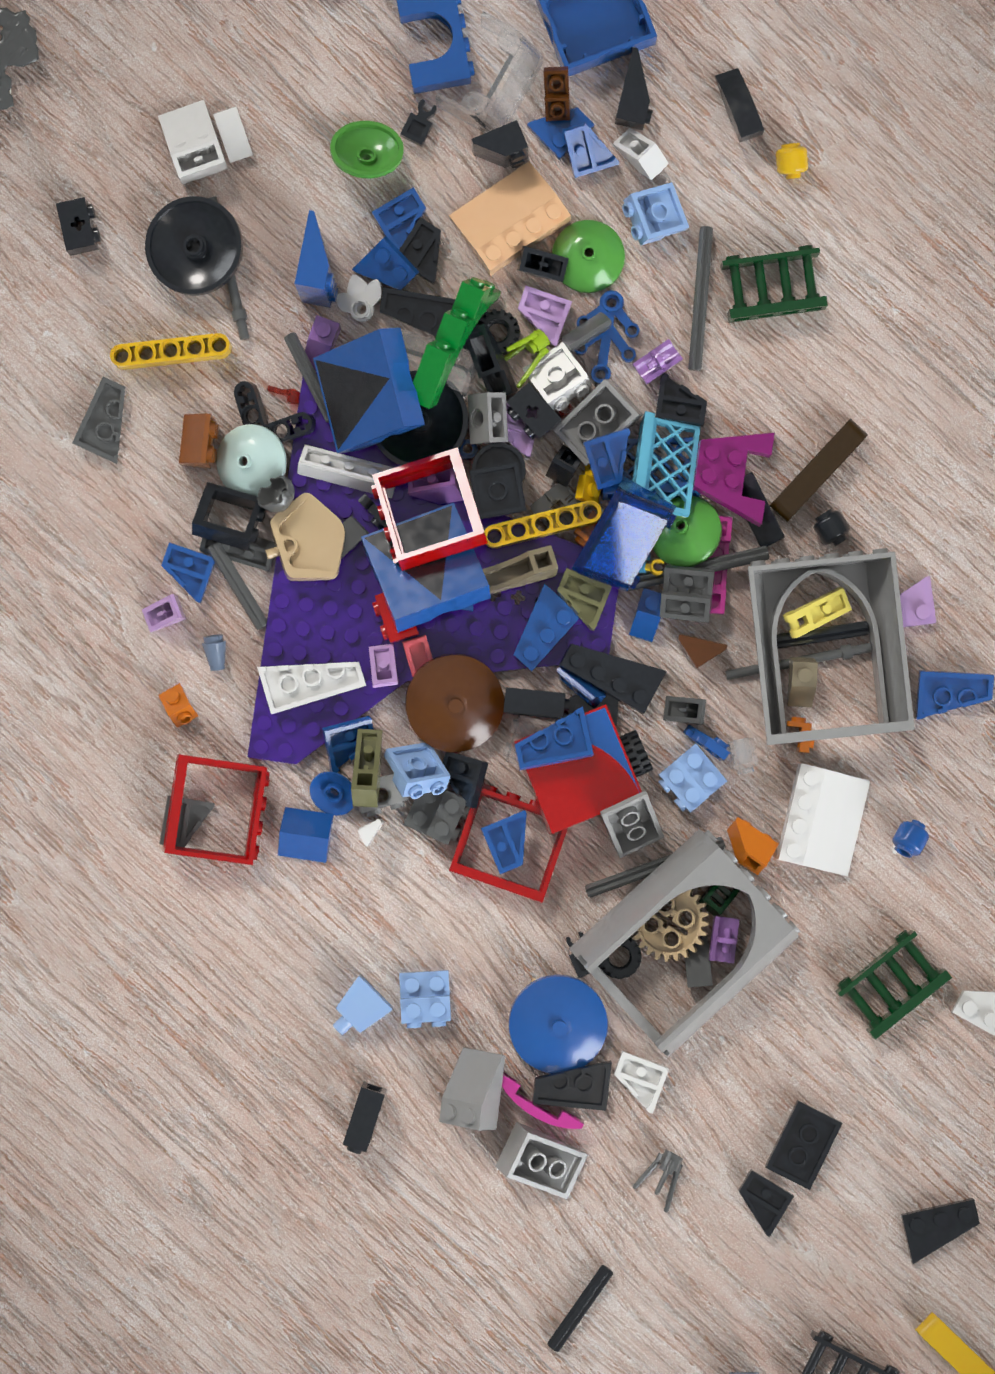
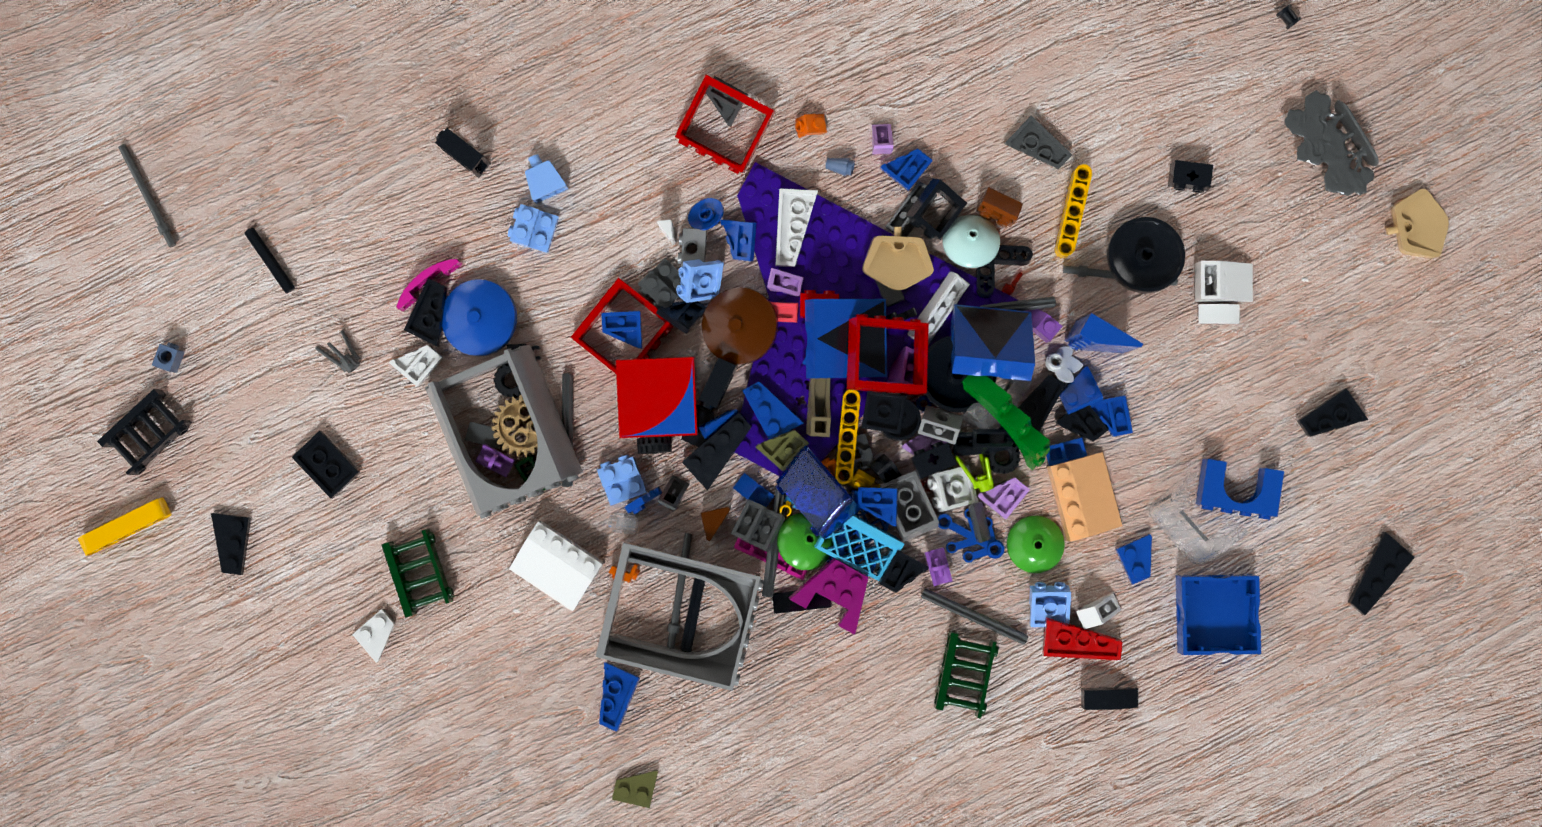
camera: 115 degrees right, 0 degrees up
(237, 585) = (883, 199): dark grey axle -> none
(277, 496) = (938, 250): dark grey hair -> none
(305, 834) = (683, 184): blue slope -> none
(366, 149) = (1173, 407): bright green dish -> none
(367, 768) = (714, 243): olive slope -> none
(417, 126) = (1176, 452): black plate -> none
(463, 258) = (1066, 451): none -> blue slope
(474, 1091) = (451, 238): light grey slope -> none
(502, 146) = (1140, 509): black slope -> none
(540, 1161) = (385, 269): light grey slope -> none
(542, 264) = (1041, 507): black slope -> none
(556, 93) = (1166, 564): reddish brown slope -> none
(558, 743) = (680, 387): blue wing -> none
(586, 151) = (1114, 571): wing -> none
(632, 824) = (602, 422): light grey slope -> none
(634, 100) = (1141, 621): black slope -> none
(687, 167) = (1076, 642): none -> red wing
(750, 845) = (555, 505): orange slope -> none
(765, 1200) = (296, 422): black wing -> none
(792, 160) = (1054, 722): yellow head -> none
(802, 681) = (663, 587): dark tan slope -> none
(817, 612) = (709, 617): light yellow plate -> none
(818, 470) = (815, 657): dark brown beam -> none
(831, 527) = (768, 651): black head -> none
(910, 838) = (519, 625): blue head -> none
(918, 604) = (689, 694): lavender wing -> none

